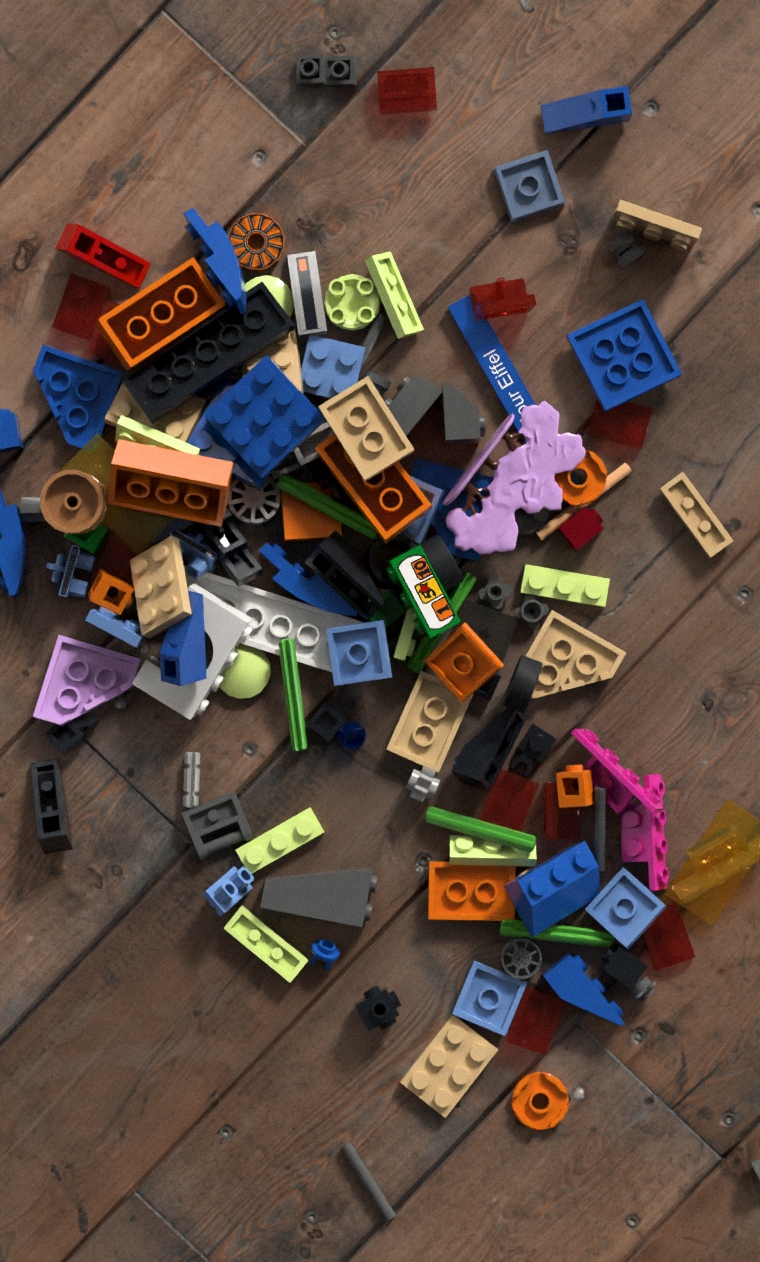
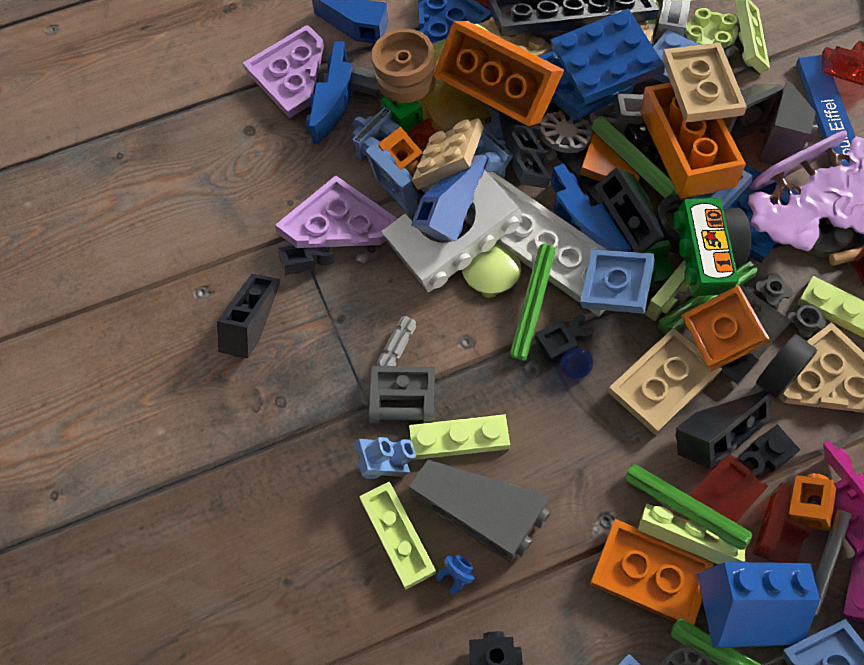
camera: 25 degrees right, 25 degrees down
(422, 784) = (636, 435): light grey gear -> none

